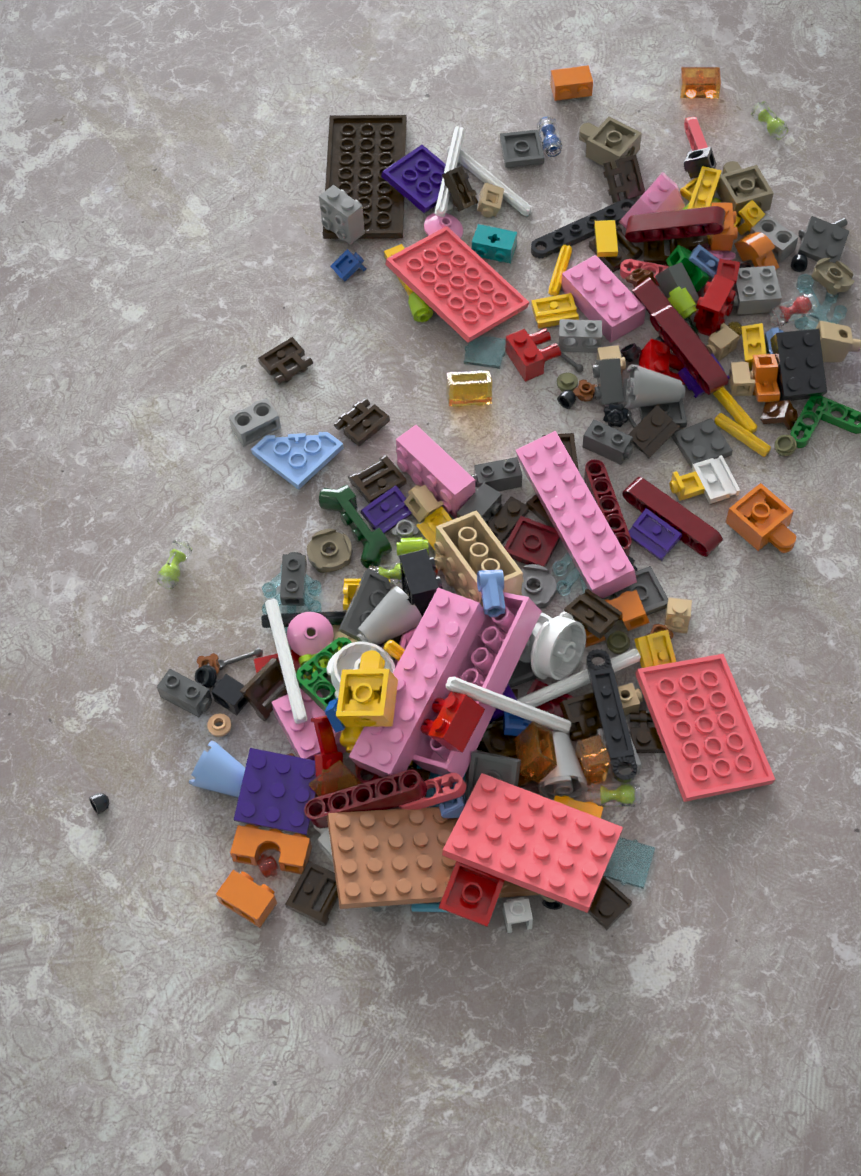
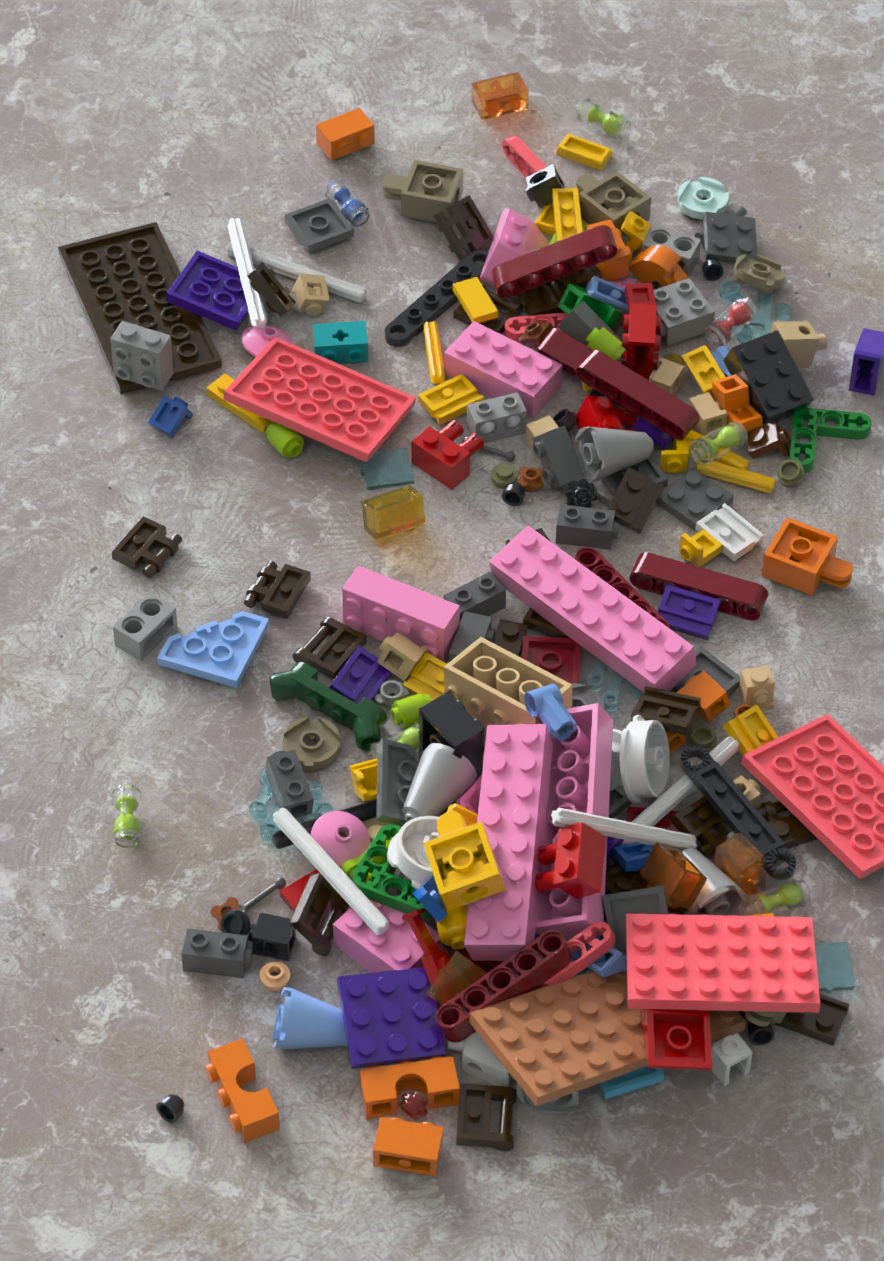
camera: 25 degrees left, 10 degrees down
(151, 788) = (251, 1112): none -> orange arch
(702, 409) = (677, 459): none -> yellow bracket
(745, 142) = (584, 152): none -> yellow tile
(748, 404) = (729, 438): none -> clear piece
(824, 196) = (691, 194): none -> light aqua plate

